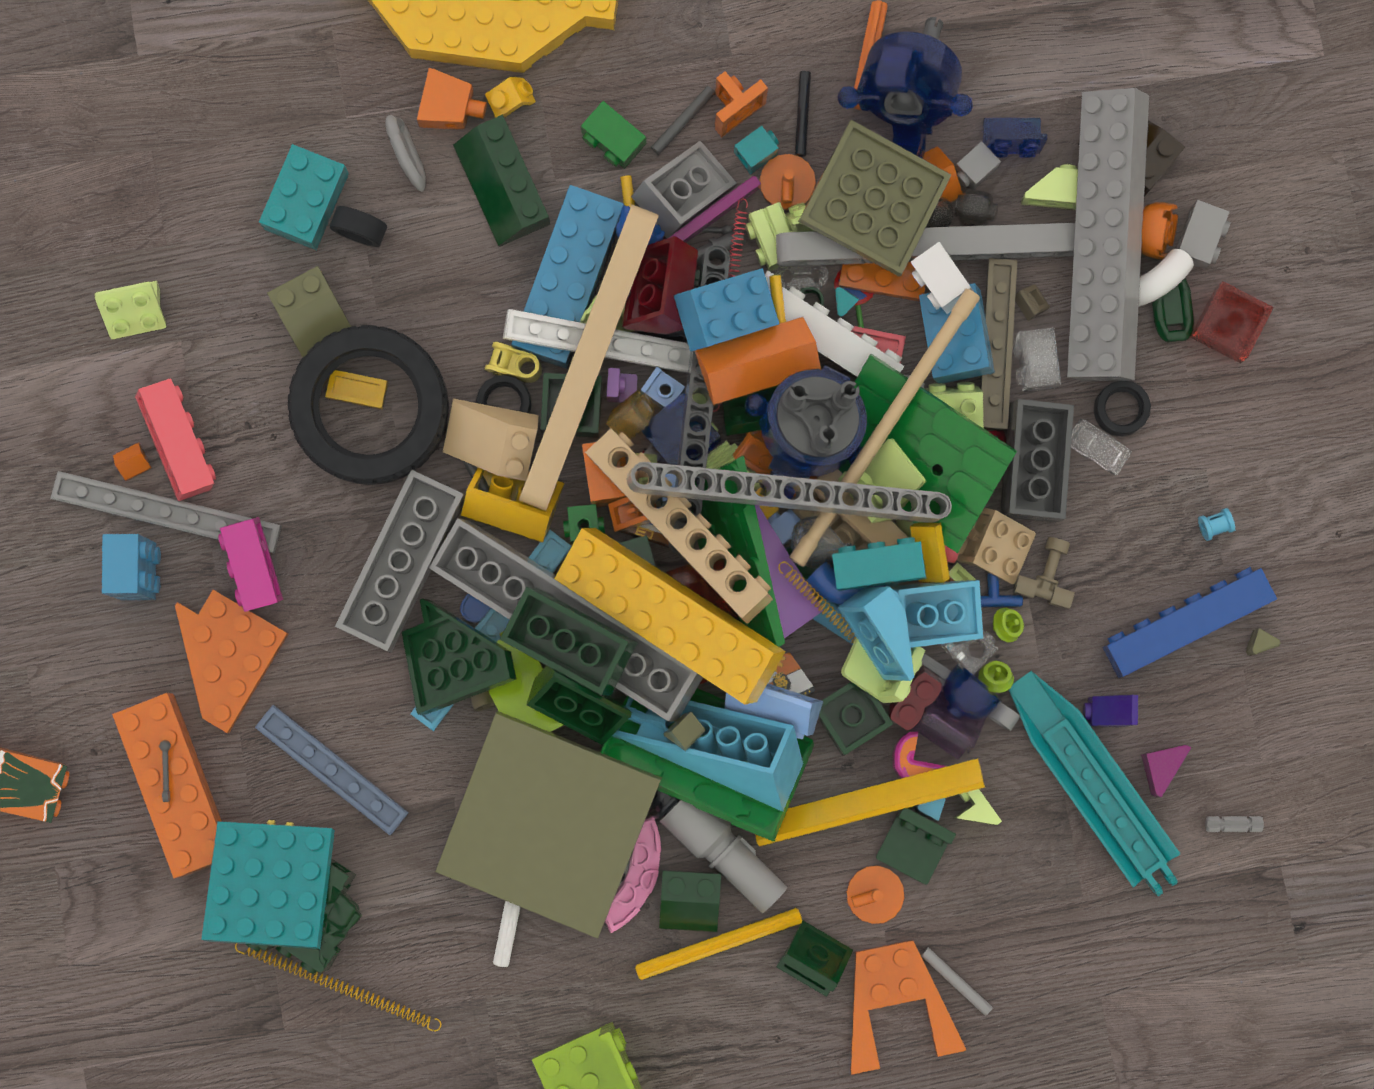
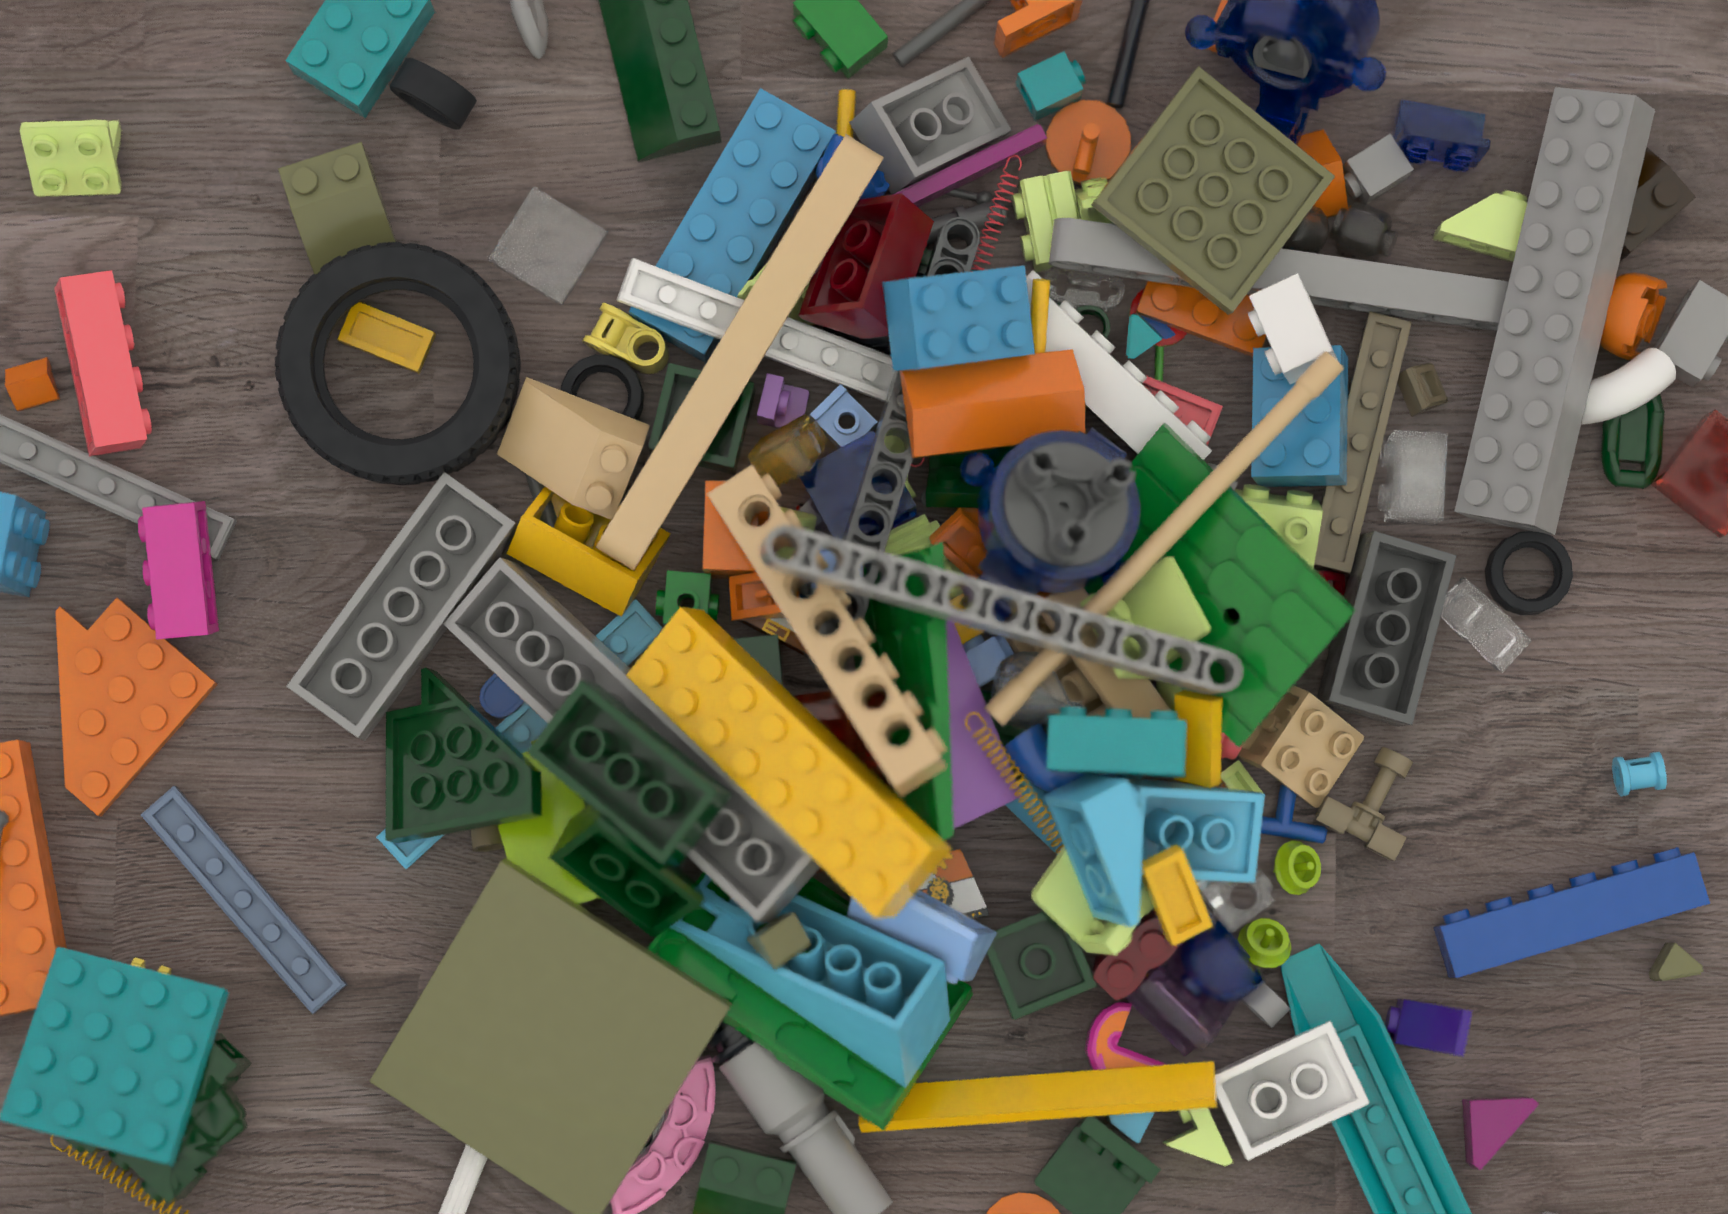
camera: 10 degrees right, 0 degrees up
(450, 311) = (547, 246): none -> clear tile
(934, 655) = (1175, 895): none -> yellow tile
(1028, 768) = (1288, 1090): none -> white slope

